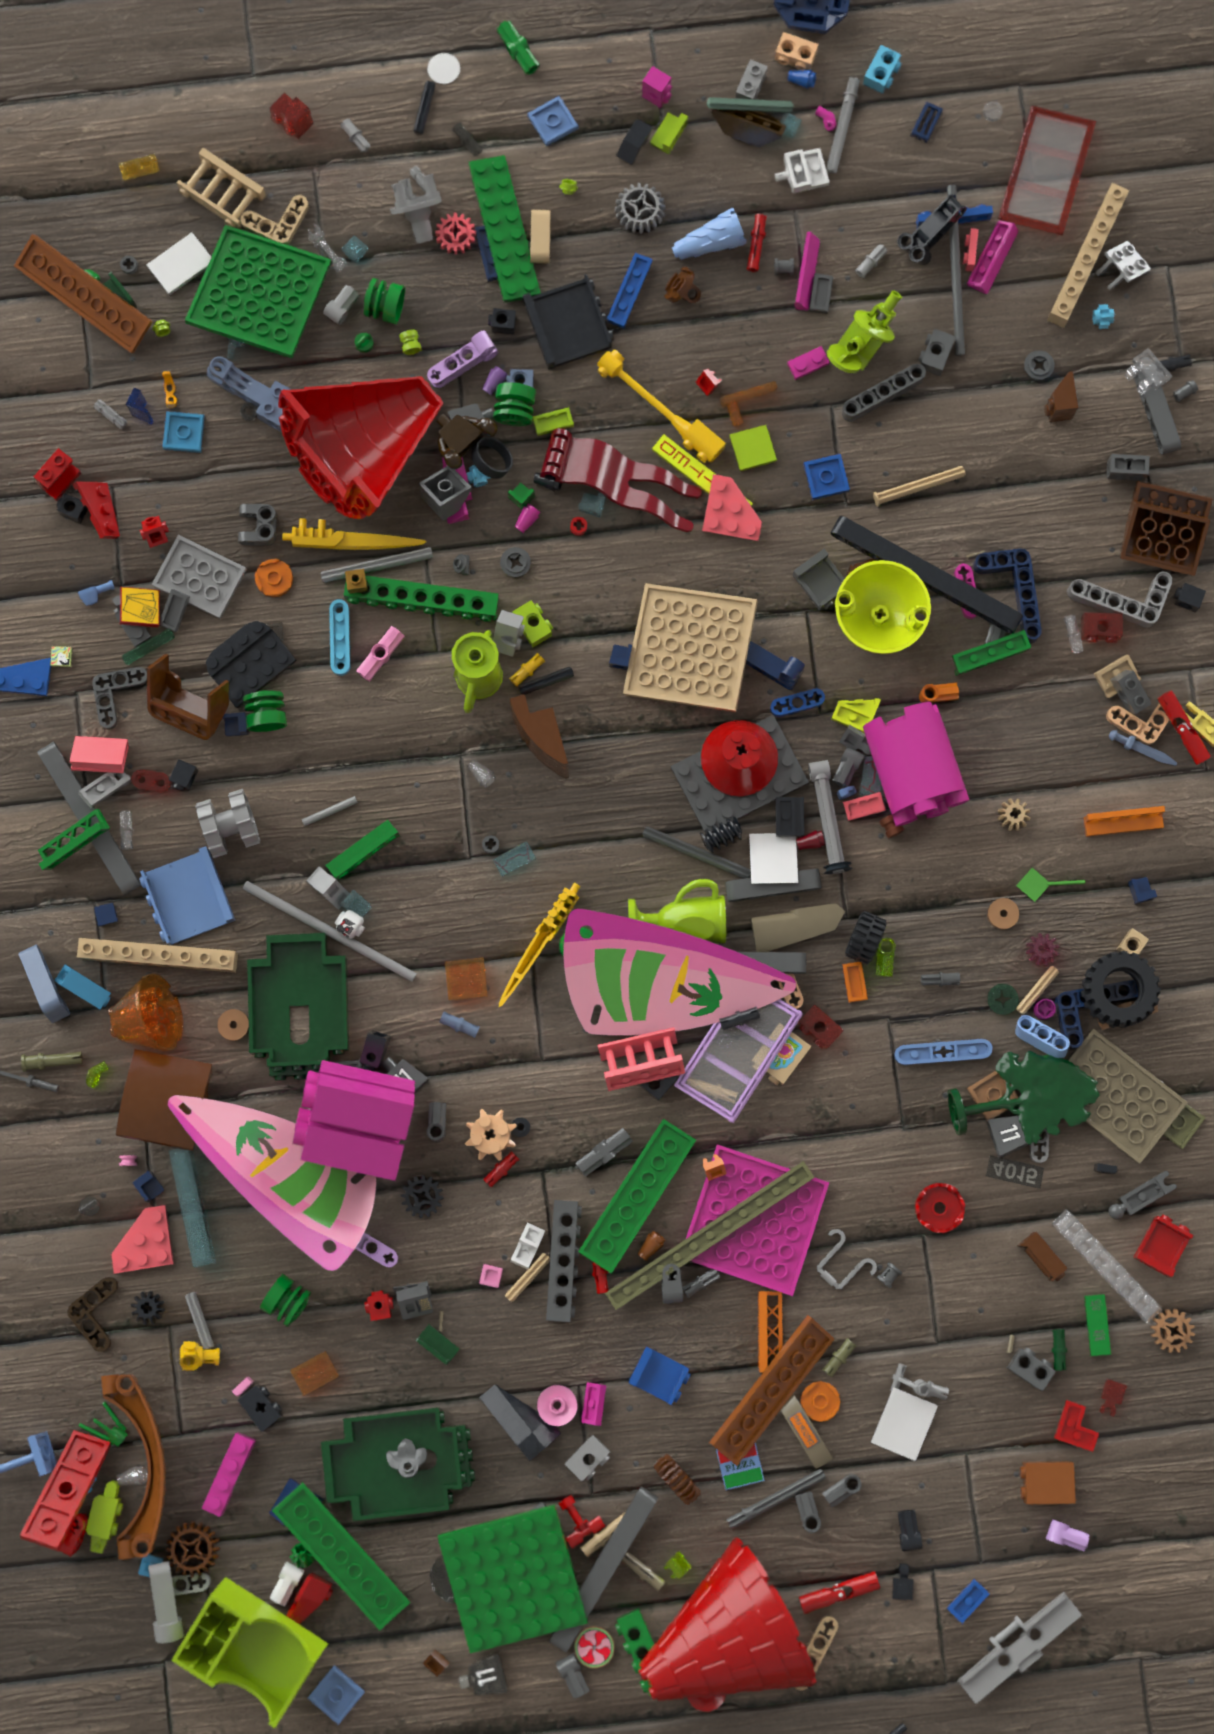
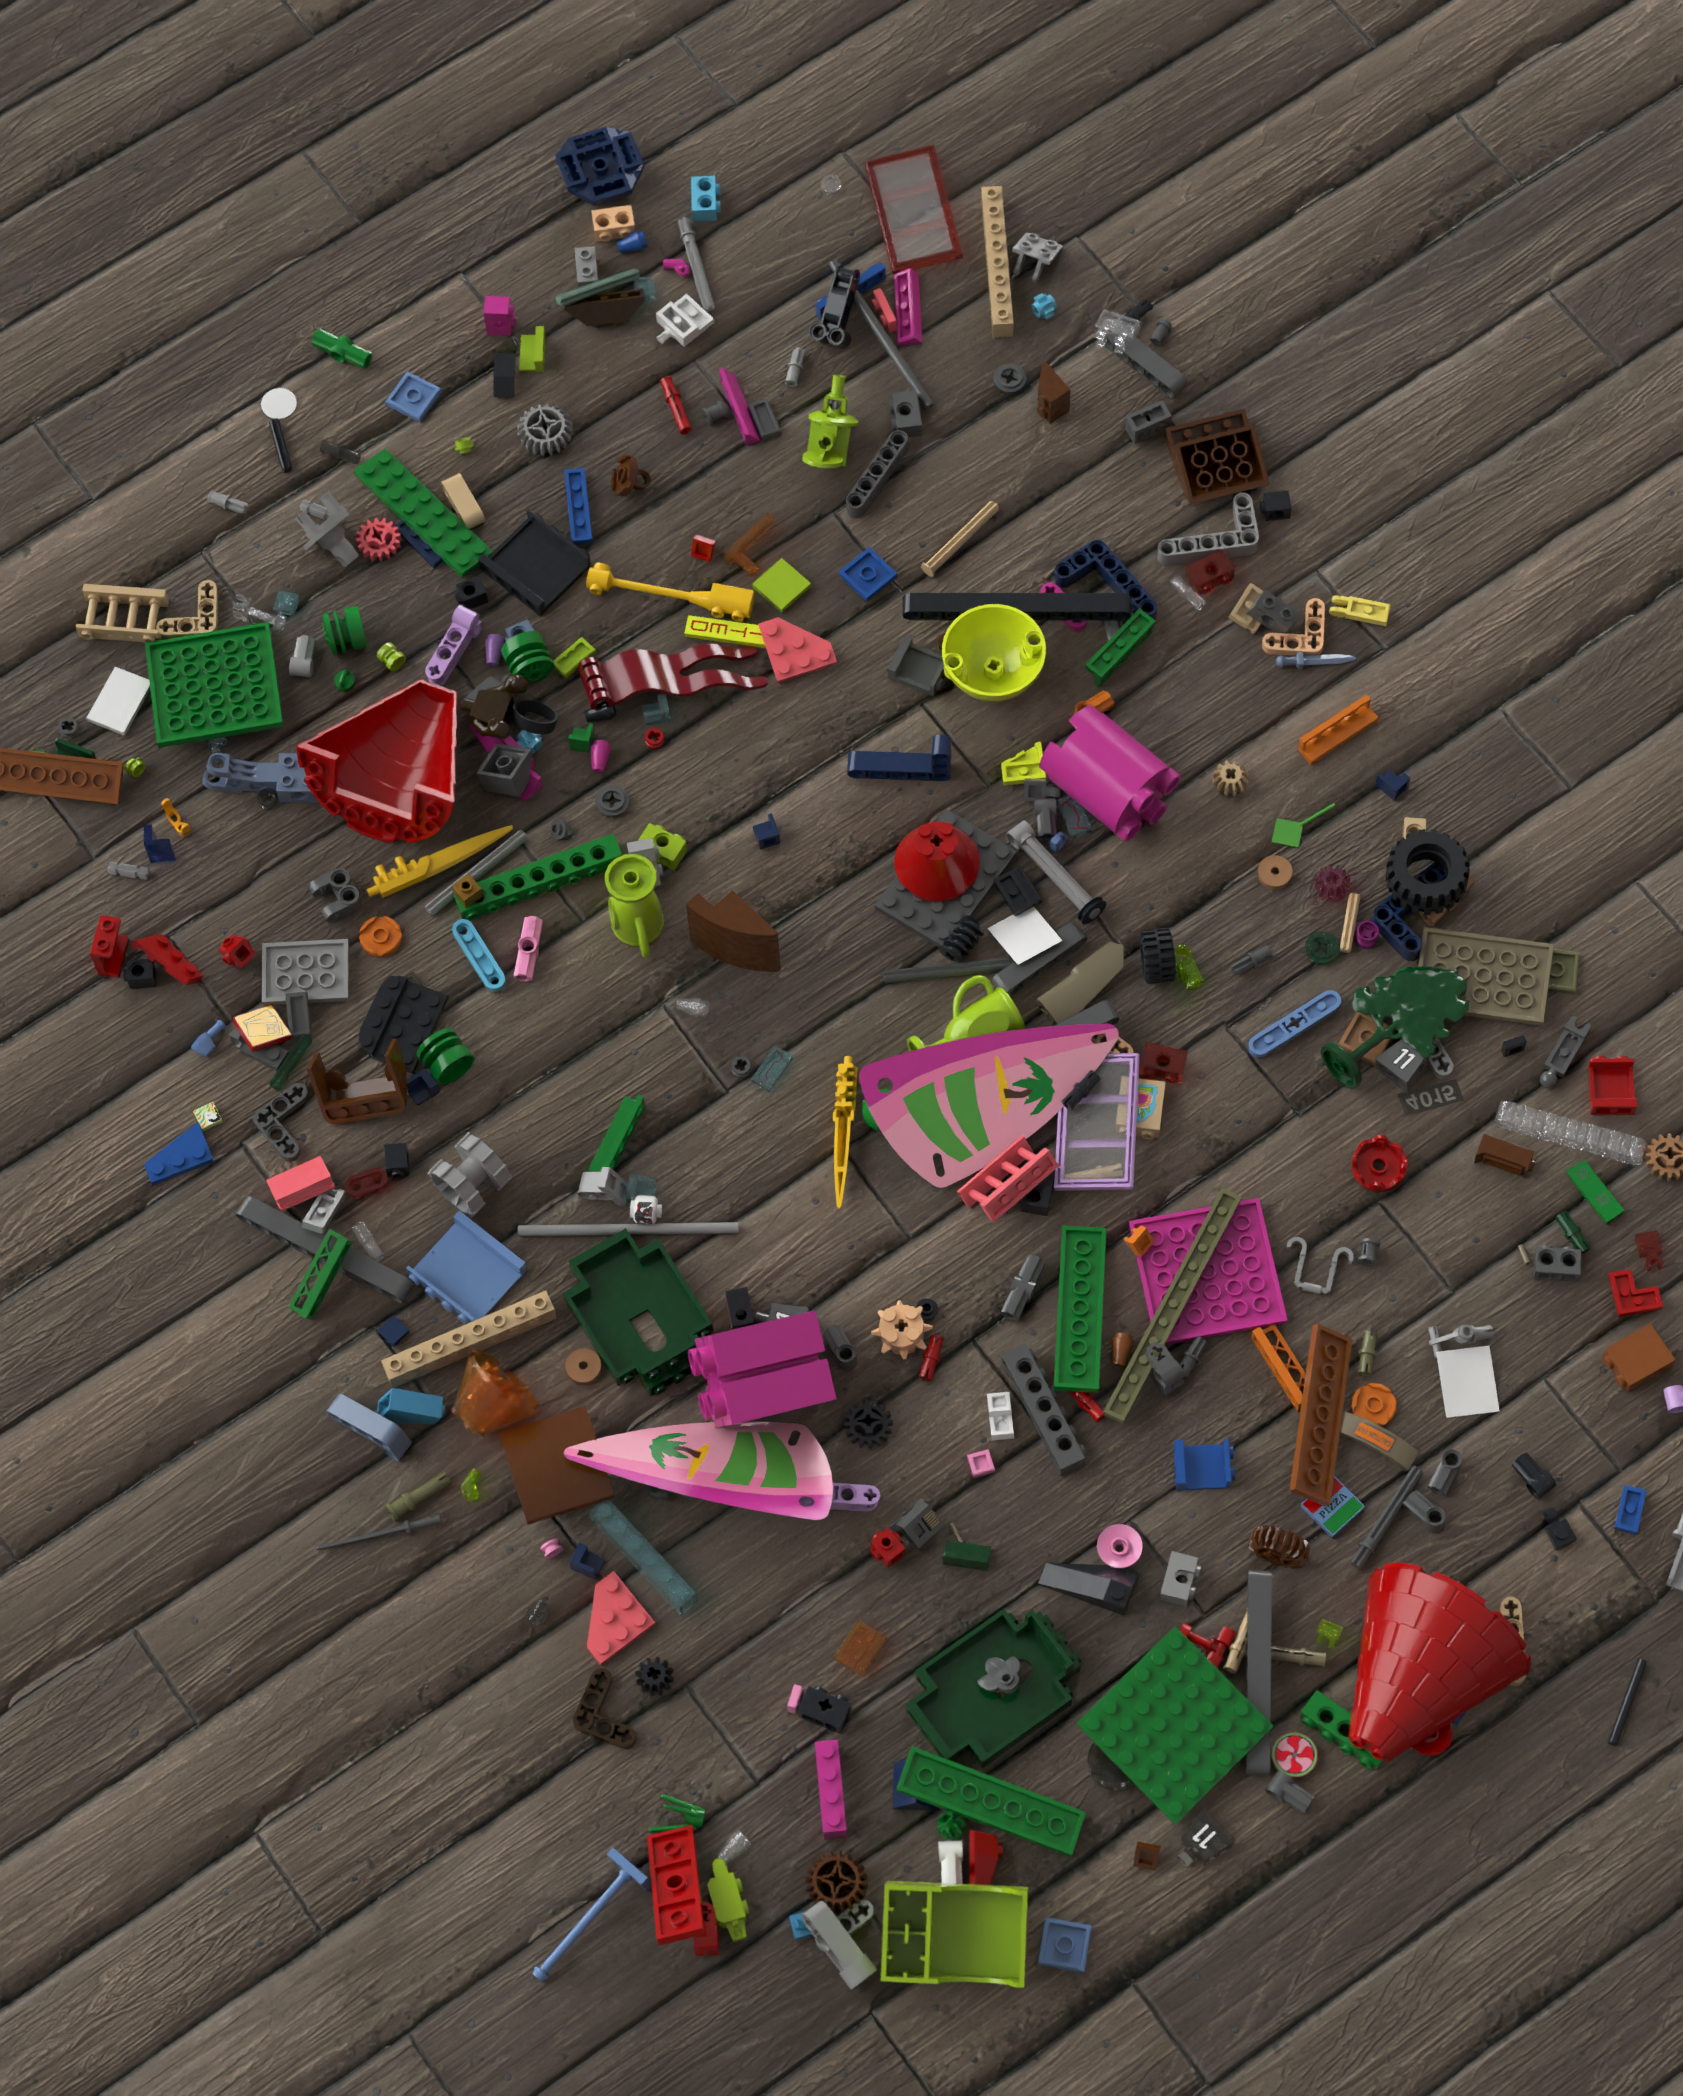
camera: 25 degrees left, 15 degrees down
(139, 167) = (27, 635): clear yellow hinge -> none
(148, 1518) = (707, 1778): dark orange panel -> none
(183, 432) = (211, 850): dark azure tile -> none
(194, 1356) = (733, 1692): yellow connector -> none
(199, 1320) = (714, 1662): light grey axle -> none
(285, 1300) = (790, 1590): green wheel -> none
(292, 115) = (155, 514): clear red brick -> none
(329, 811) = (568, 1112): light grey bar -> none
(459, 1024) = (809, 1246): sand blue pin -> none
(466, 979) = (790, 1201): clear orange plate -> none
(527, 669) = (681, 891): yellow pin -> none
(527, 1277) = (1018, 1444): tan axle -> none
(546, 680) = (712, 885): black axle -> none
(593, 1404) = (1154, 1525): dark pink plate -> none
(690, 647) = (829, 787): tan plate -> none
(713, 236) = (632, 417): light blue cone -> none
(808, 363) = (789, 485): dark pink plate -> none
(811, 841) = (1052, 900): dark red cone -> none
(812, 704) = (960, 796): blue beam -> none
(828, 1596) = (1516, 1554): red piece -> none
(855, 982) = (1171, 1006): orange tile -> none
(864, 806) = (1083, 844): coral plate -> none
(889, 825) = (1120, 848): copper wheel -> none
(920, 135) = (775, 237): dark blue tile -> none
(1046, 1045) = (1380, 958): light blue beam -> none
(1188, 735) = (1353, 625): red piece -> none

